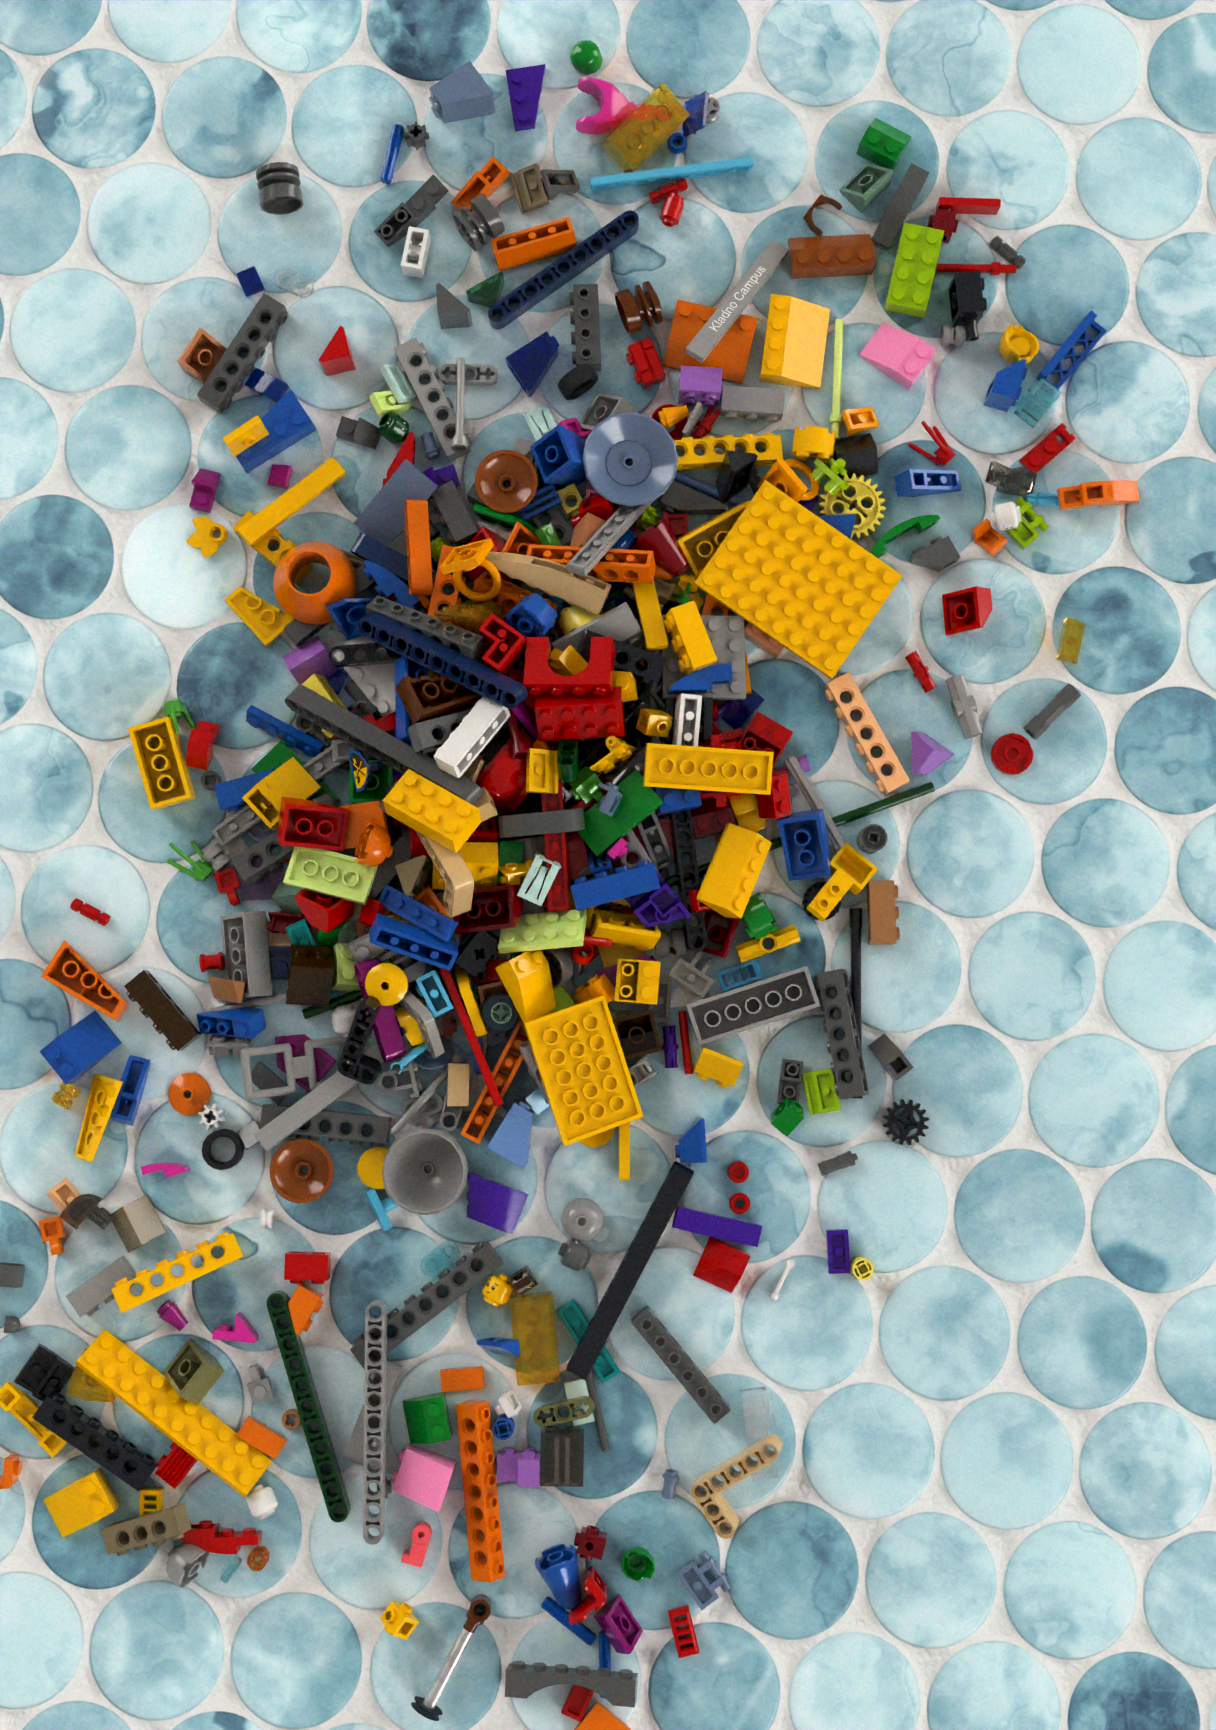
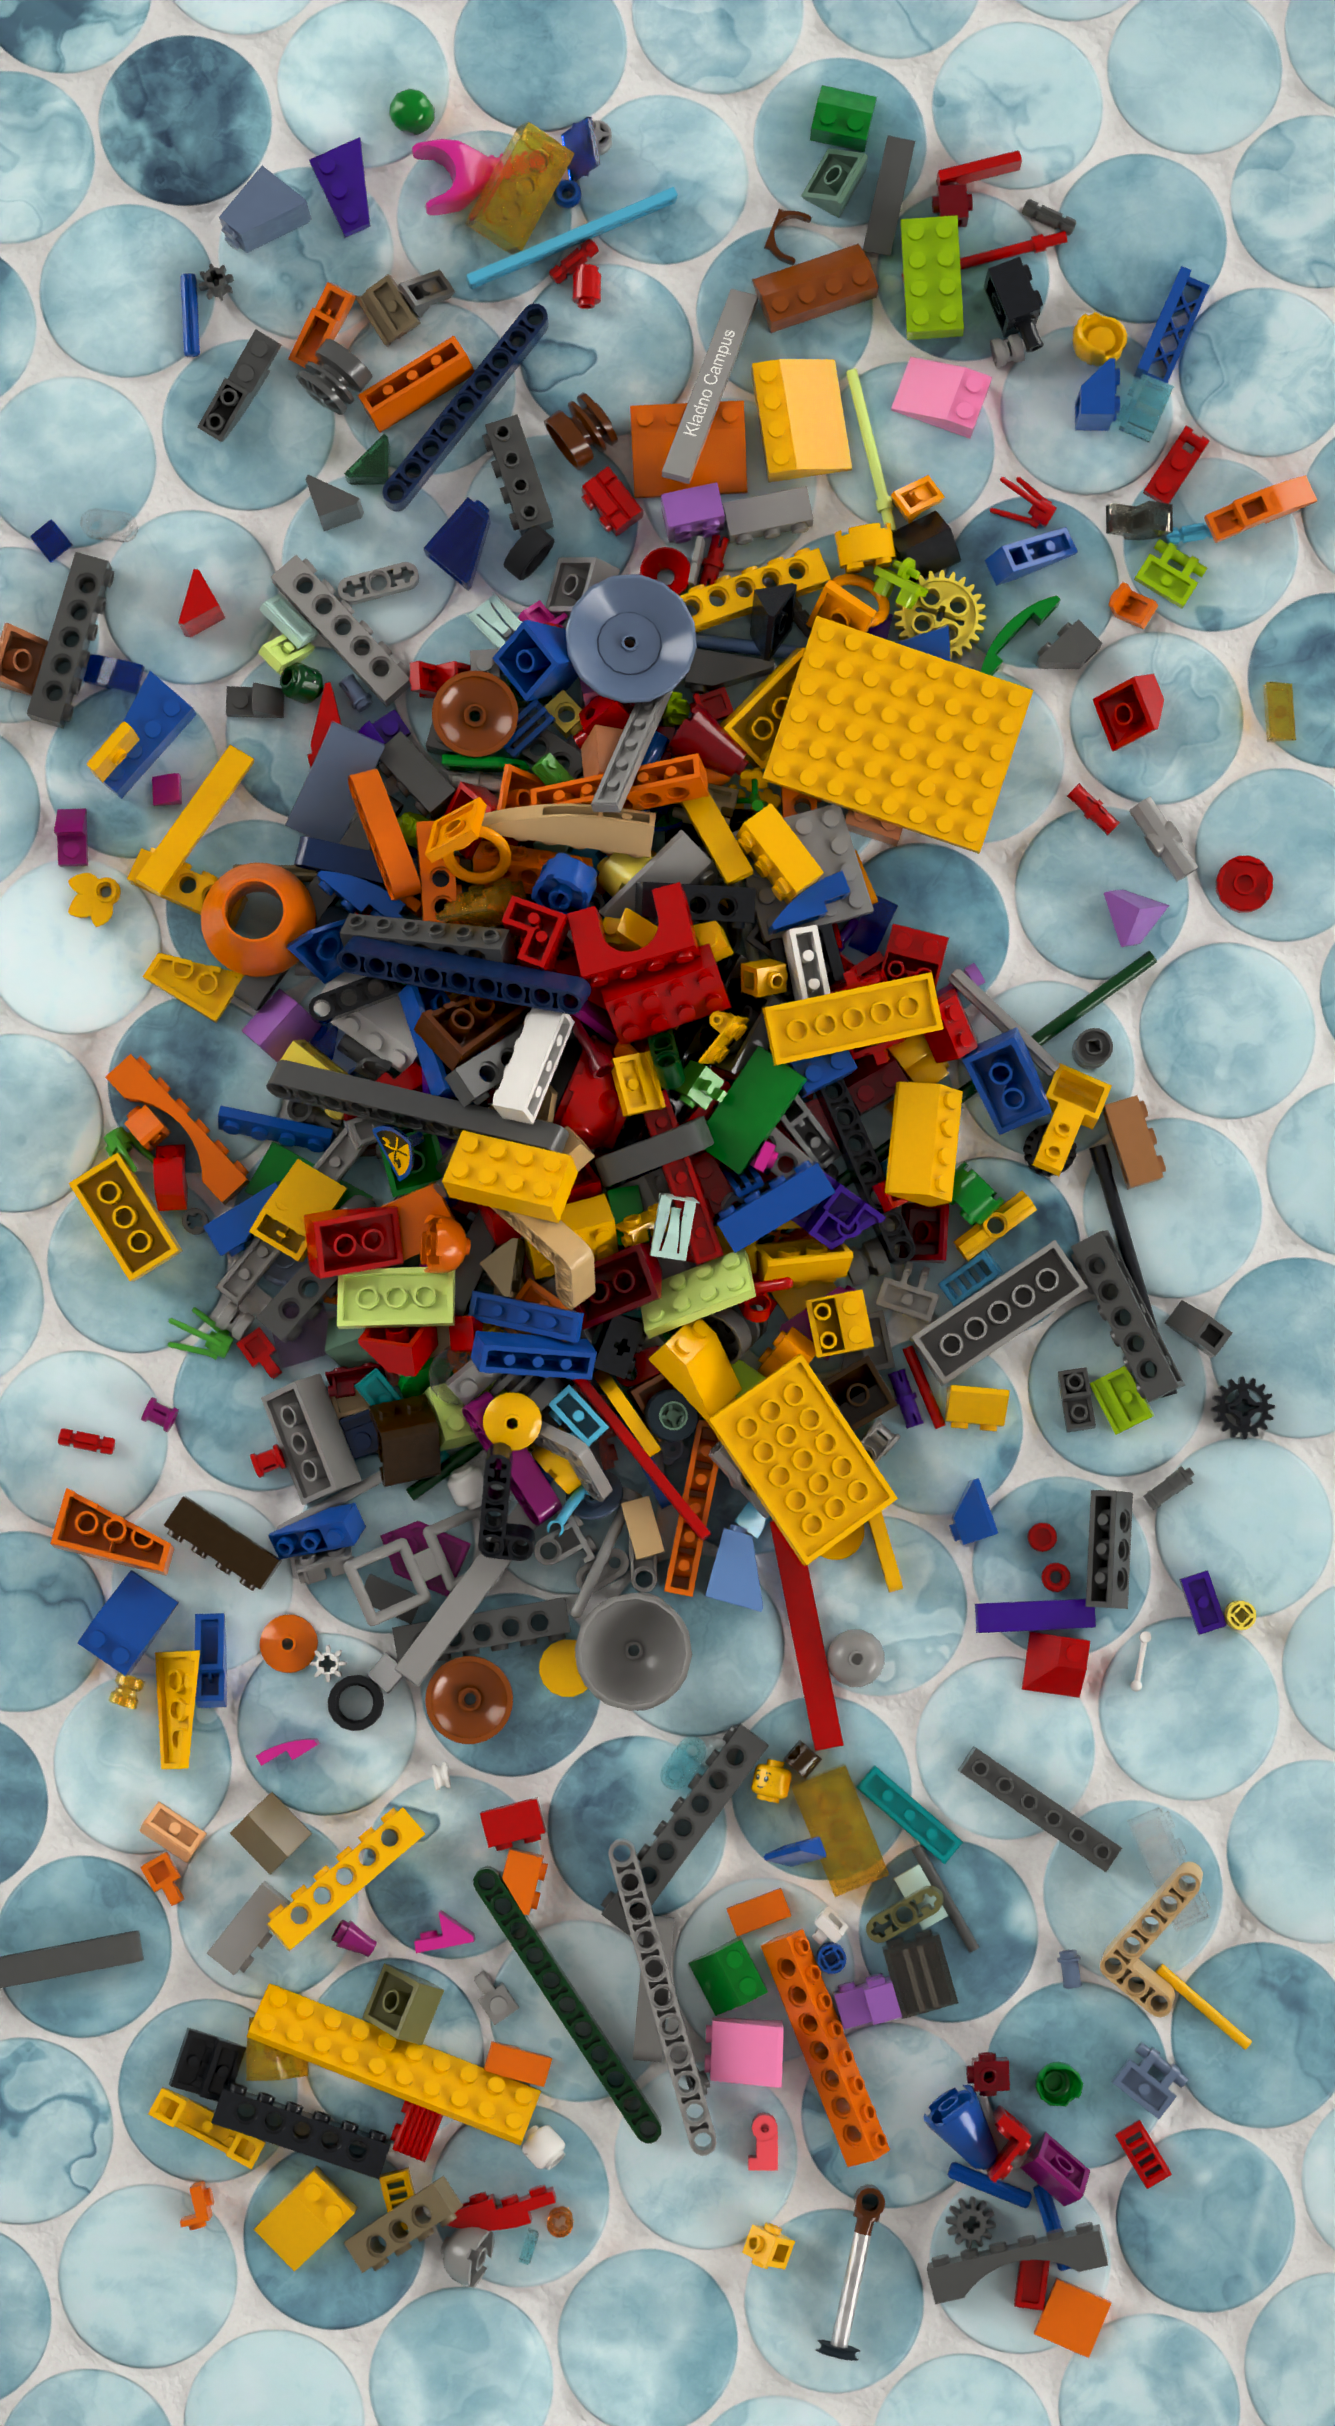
camera: 15 degrees left, 0 degrees up
(11, 1324) = (144, 2013): dark grey hinge -> none
(83, 1207) = (199, 1830): clear smoke brick -> none
(150, 911) = (160, 1414): none -> magenta bush
(195, 705) = (146, 1127): none -> orange slope
(227, 989) = (300, 1490): medium nougat slope -> none
(236, 749) = (218, 1171): none -> orange arch
(279, 188) = (55, 405): dark grey wheel -> none
(285, 1417) = (541, 2029): medium nougat bush -> none
(380, 1208) = (587, 1719): medium azure tile -> none
(415, 252) = (262, 439): white brick -> none
(459, 442) = (396, 677): light grey piece -> none
(481, 447) = (429, 678): none -> red brick
(494, 1203) = (734, 1670): dark purple slope -> none
(551, 1203) = (808, 1645): none -> red tile
(552, 1650) = (977, 2229): none -> dark grey gear
(574, 1255) = (859, 1706): dark grey head -> none
(610, 801) = (737, 1097): sand blue bracket -> none
(629, 1270) = (937, 1705): black beam -> none
(673, 415) = (668, 562): light orange cone -> none
(756, 1538) = (1204, 2007): none -> yellow bar
(782, 1195) = (1109, 1549): none -> dark grey brick
(787, 1116) = (1085, 1444): green brick -> none
(846, 685) = (1001, 855): light nougat brick -> none
(1006, 516) = (1147, 571): white head -> none
(1052, 711) = (1272, 828): dark grey axle -> none

